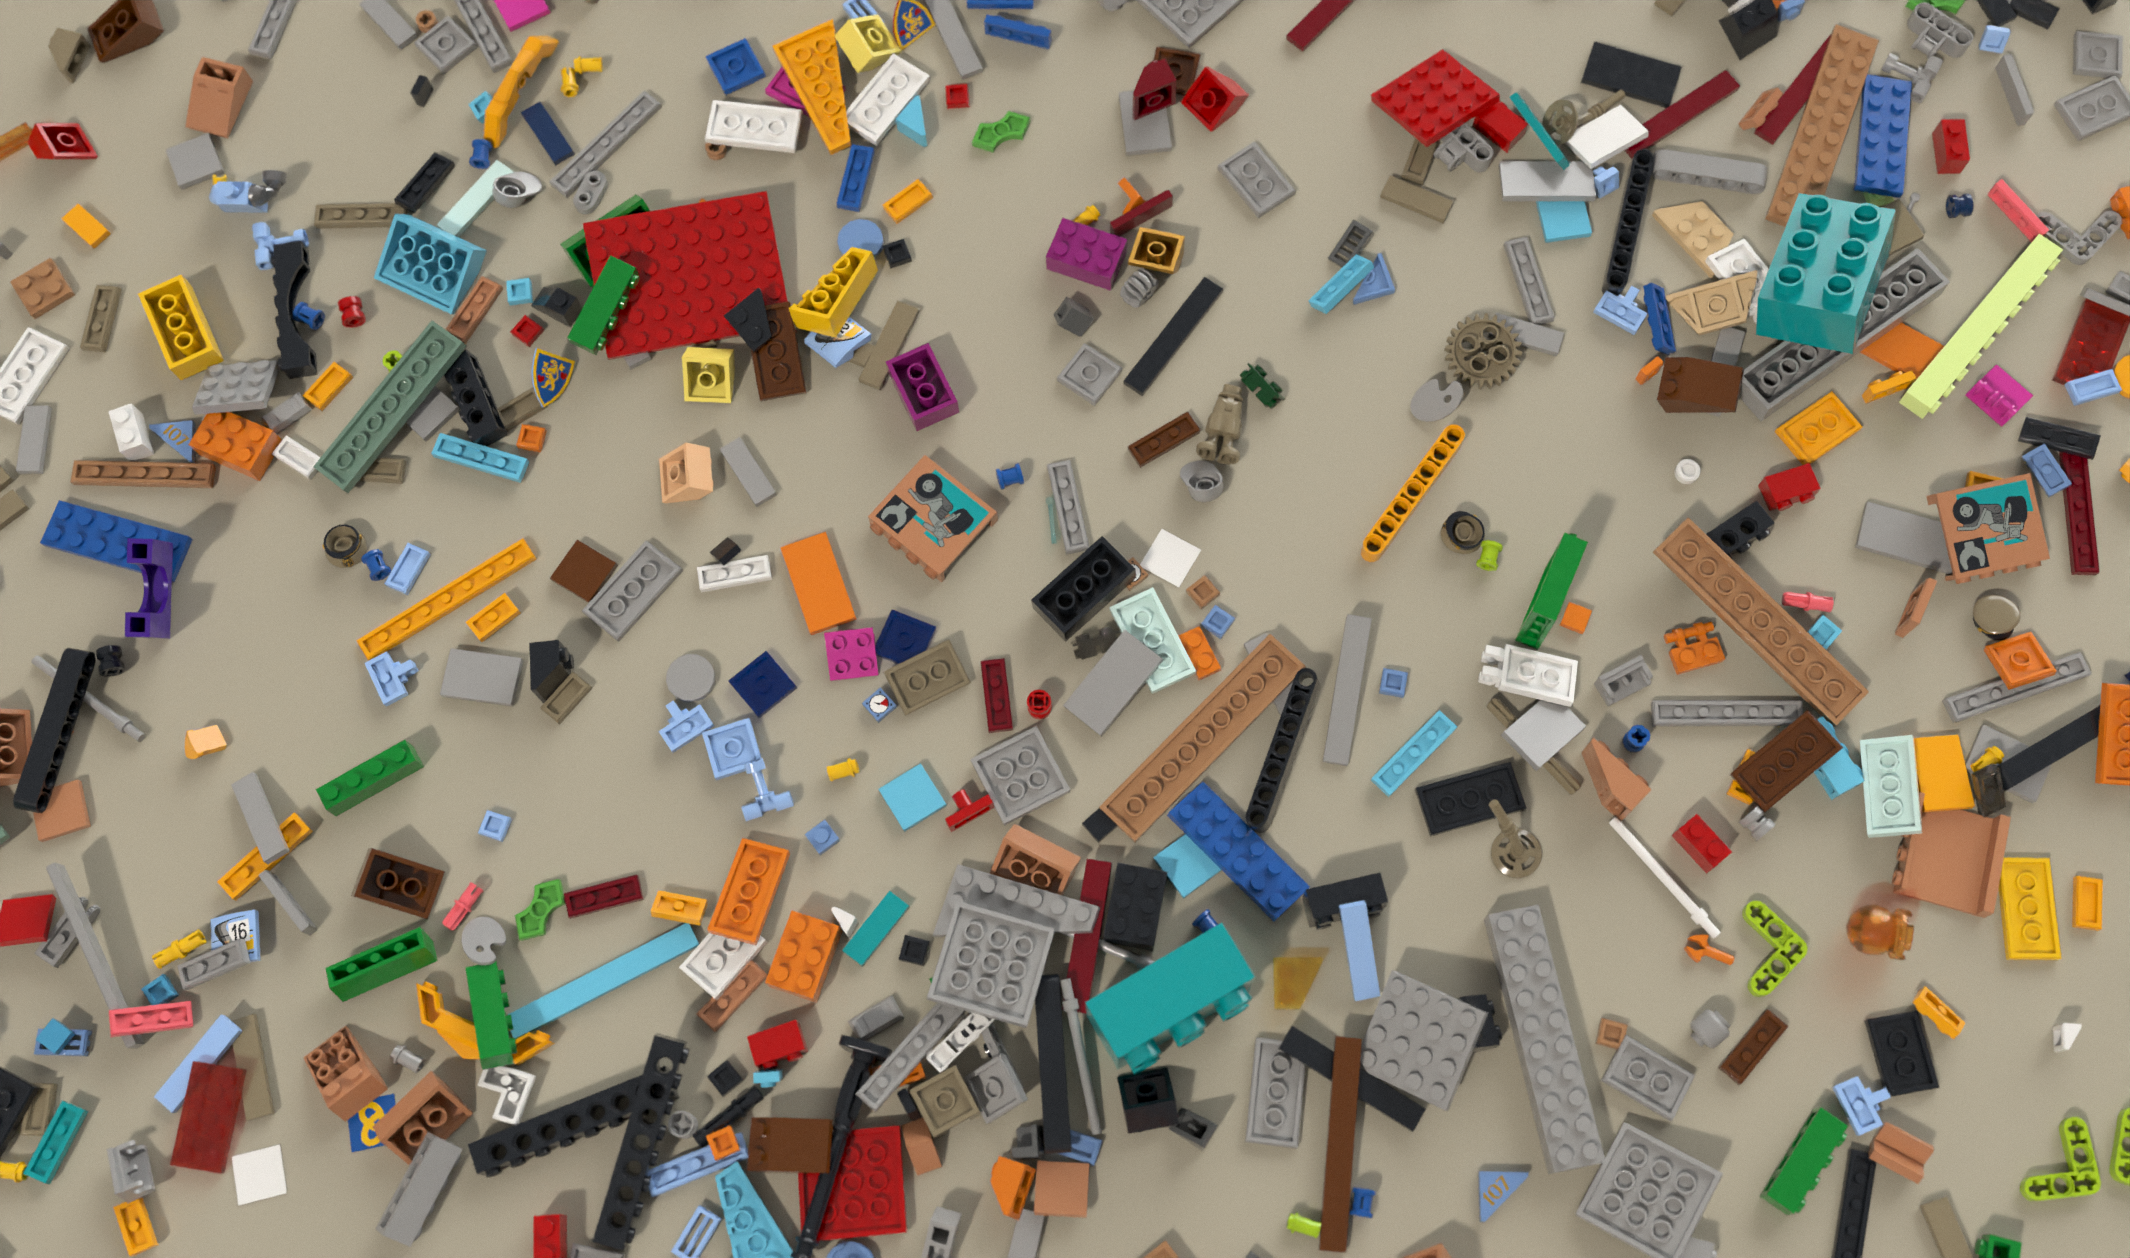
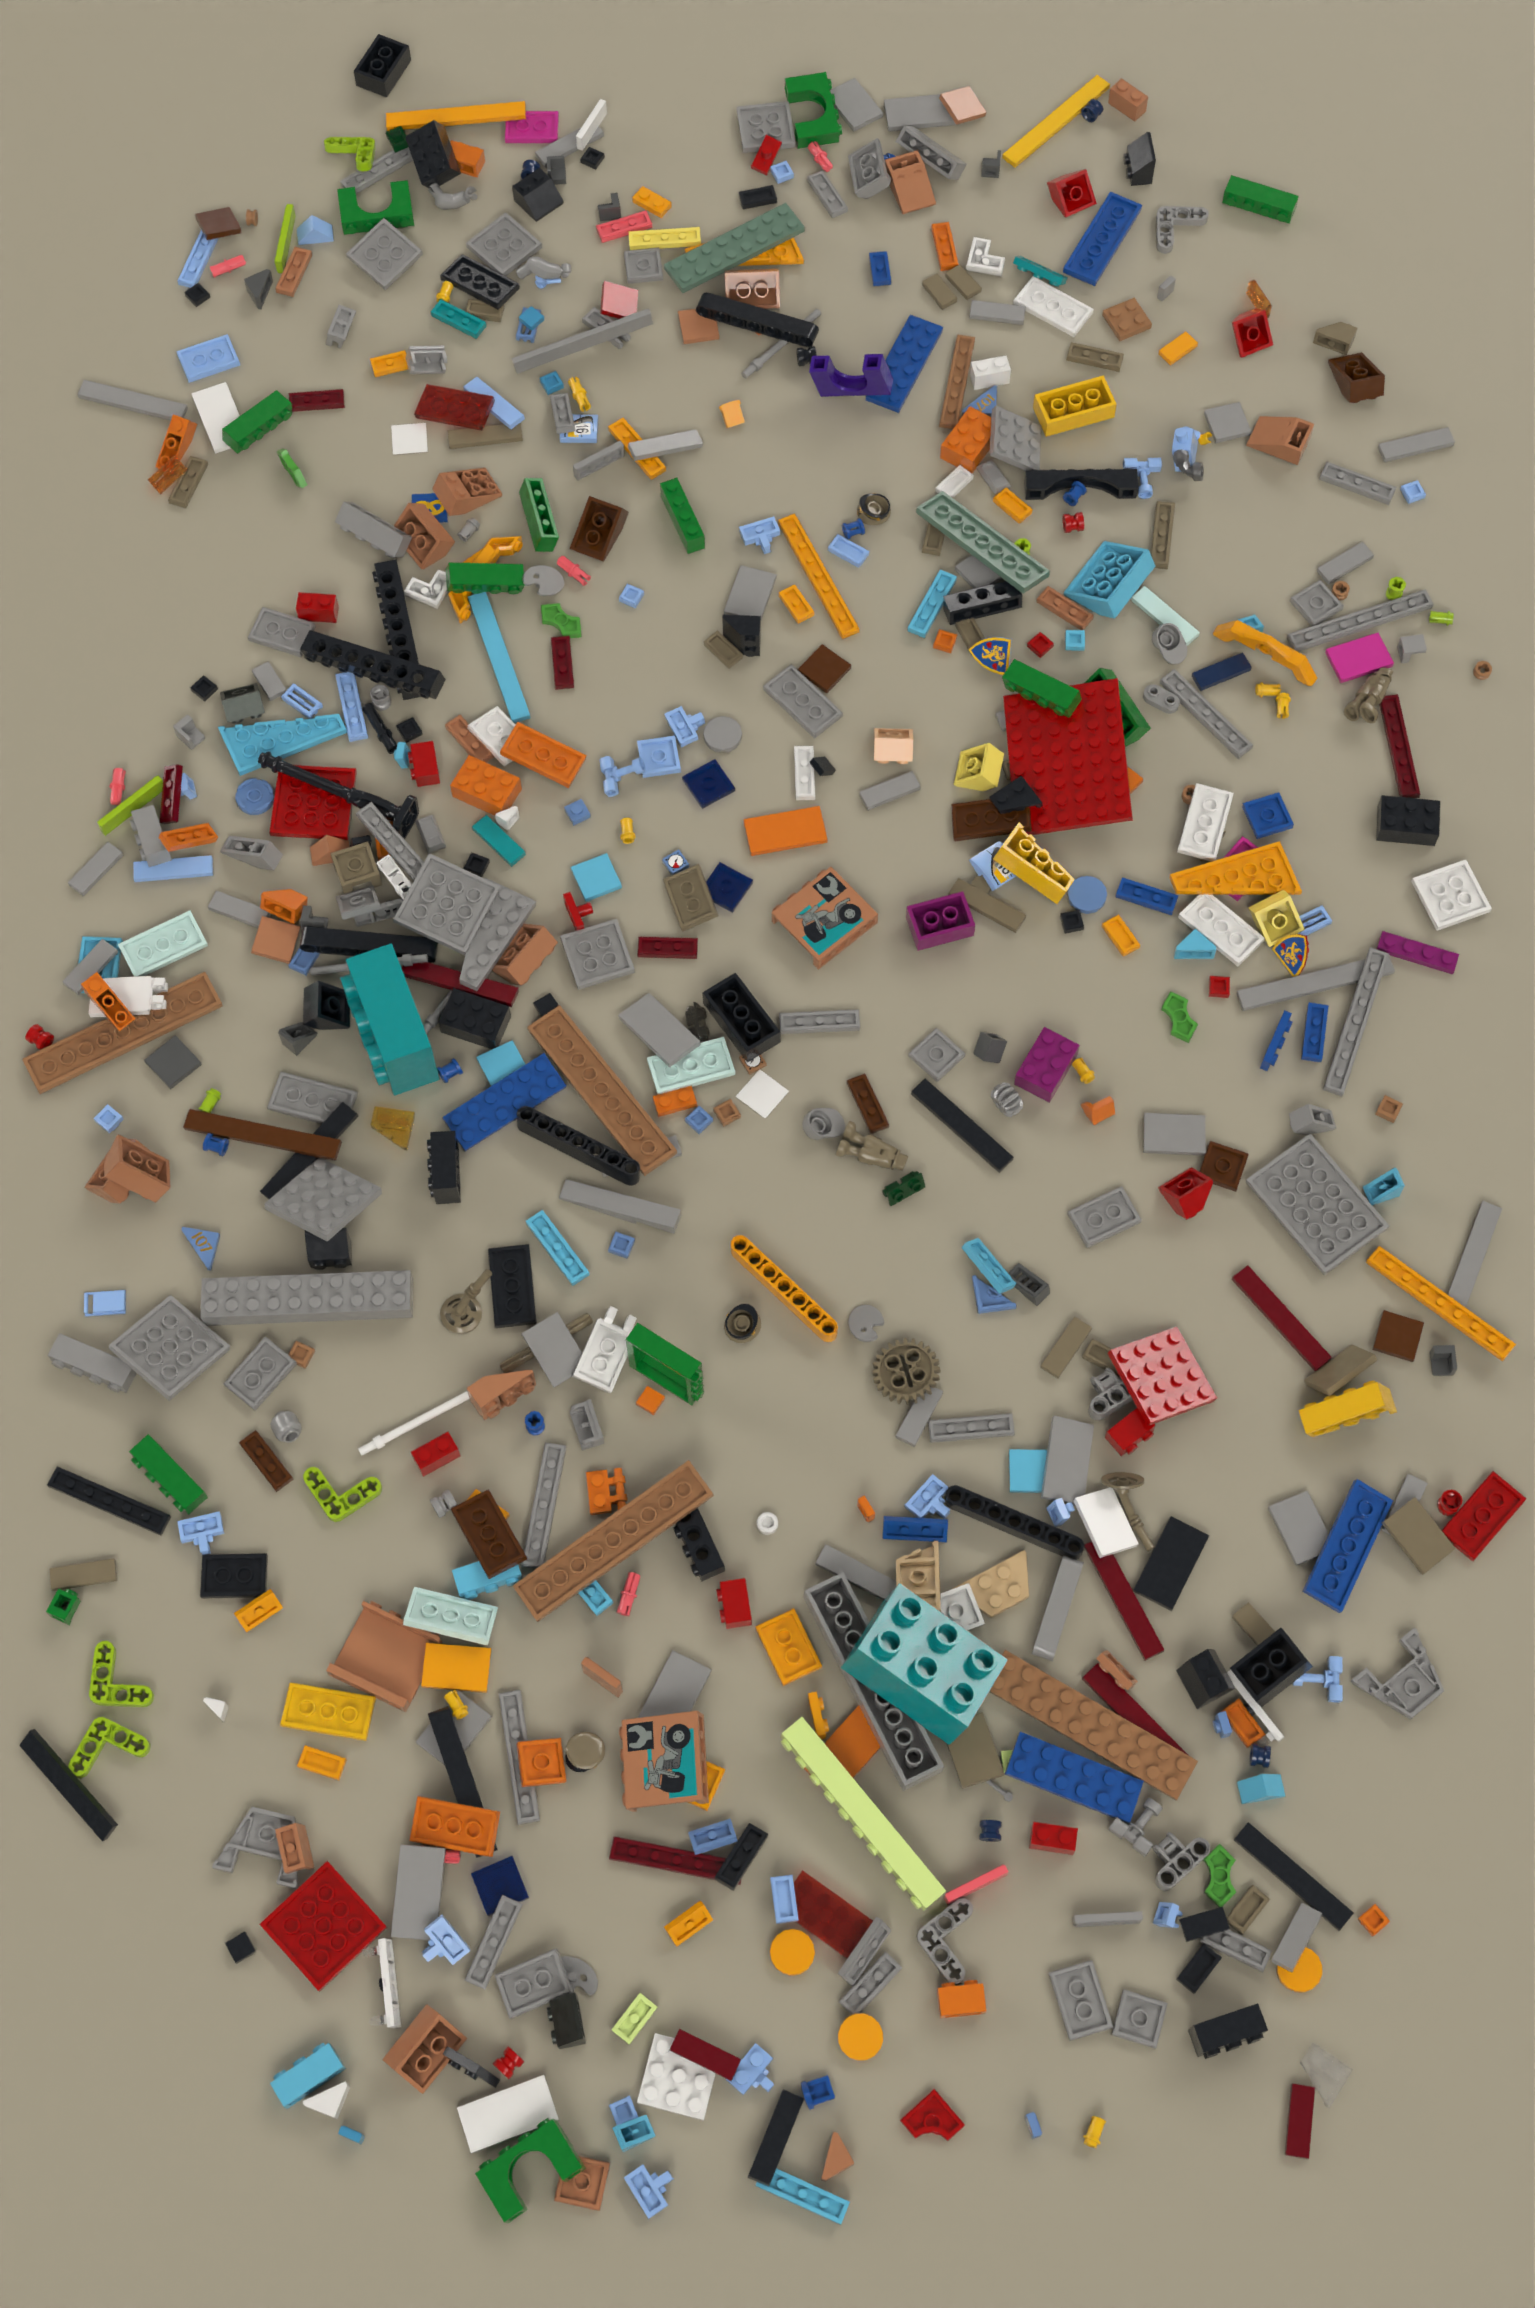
camera: 95 degrees right, 5 degrees down
(150, 1019) = (530, 373): coral tile -> none
(421, 90) = (1271, 581): black tile -> none
(424, 182) = (1185, 579): black tile -> none
(480, 154) = (1206, 620): blue bush -> none
(558, 305) = (1059, 664): black slope -> none
(679, 907) = (541, 709): light orange plate -> none
(723, 1143) = (359, 719): orange plate -> none
(789, 1145) = (347, 758): reddish brown slope -> none
(851, 653) = (720, 846): dark pink hinge -> none
(1009, 476) = (852, 979): blue bush -> none
(1039, 709) = (652, 974): red wheel -> none
(1050, 501) = (793, 1006): clear light blue hinge -> none
(1141, 213) = (1080, 1114): dark red tile -> none
(1154, 89) = (1195, 1133): dark red slope -> none
(1157, 251) = (1034, 1115): pearl gold slope -> none
(1359, 950) = (403, 1167): light blue tile -> none
(1489, 555) = (717, 1339): lime bush -> none
(1540, 131) = (1116, 1461): teal tile -> none
(1699, 386) = (839, 1539): reddish brown slope -> none
(1707, 950) = (350, 1442): orange bar -> none
(1878, 931) = (332, 1571): clear orange tile -> none
(1900, 1152) = (155, 1548): nougat panel -> none
(1988, 790) = (430, 1697): clear smoke plate -> none
(1999, 395) = (794, 1817): dark pink hinge -> none

